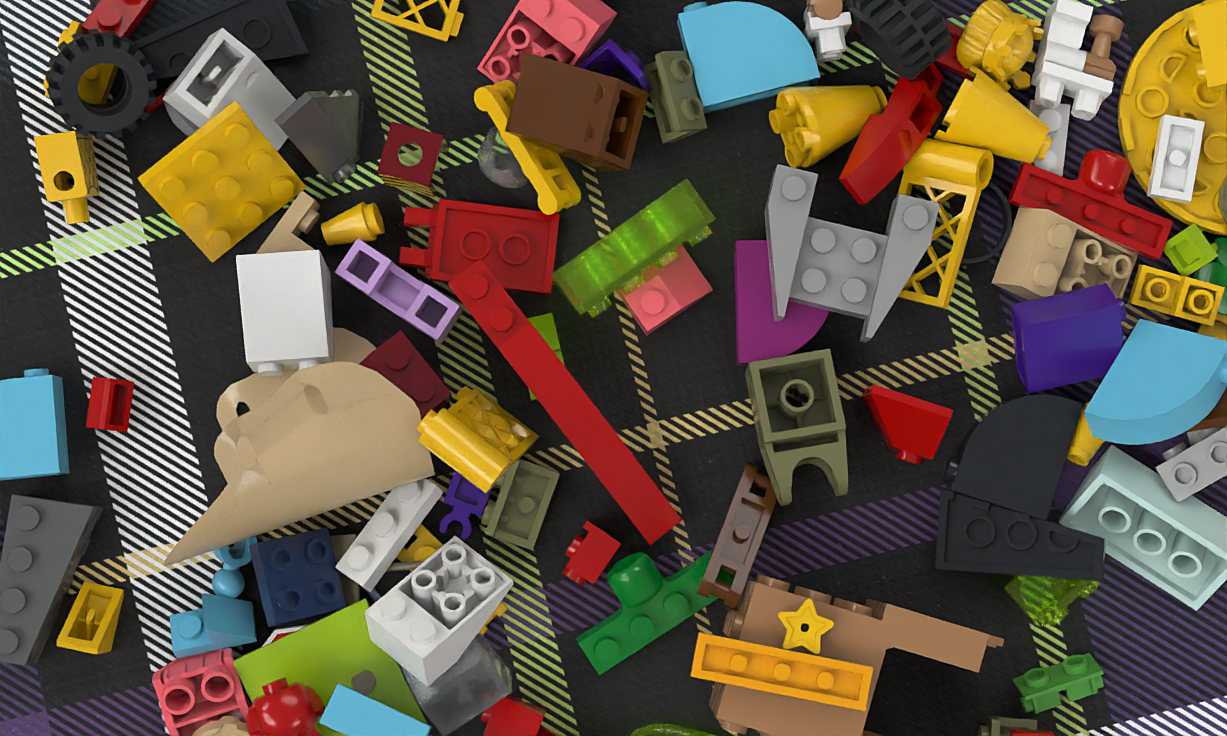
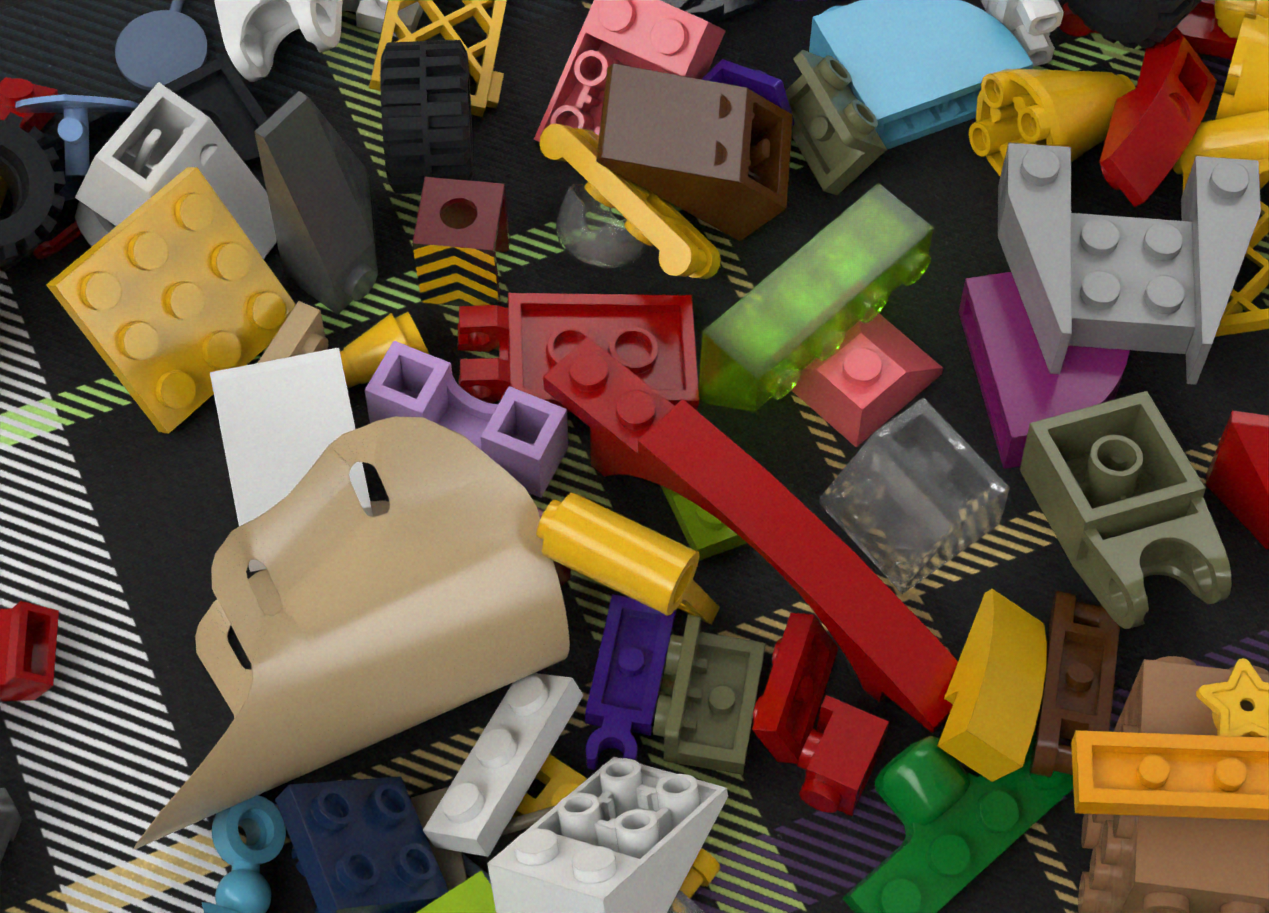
camera: 10 degrees left, 25 degrees down
(167, 27) = (75, 125): none -> light blue shield
(402, 62) = (426, 113): none -> black tyre
(572, 505) = (795, 687): none -> red plate
(670, 389) = (915, 496): none -> clear slope
(692, 529) = (996, 689): none -> yellow slope

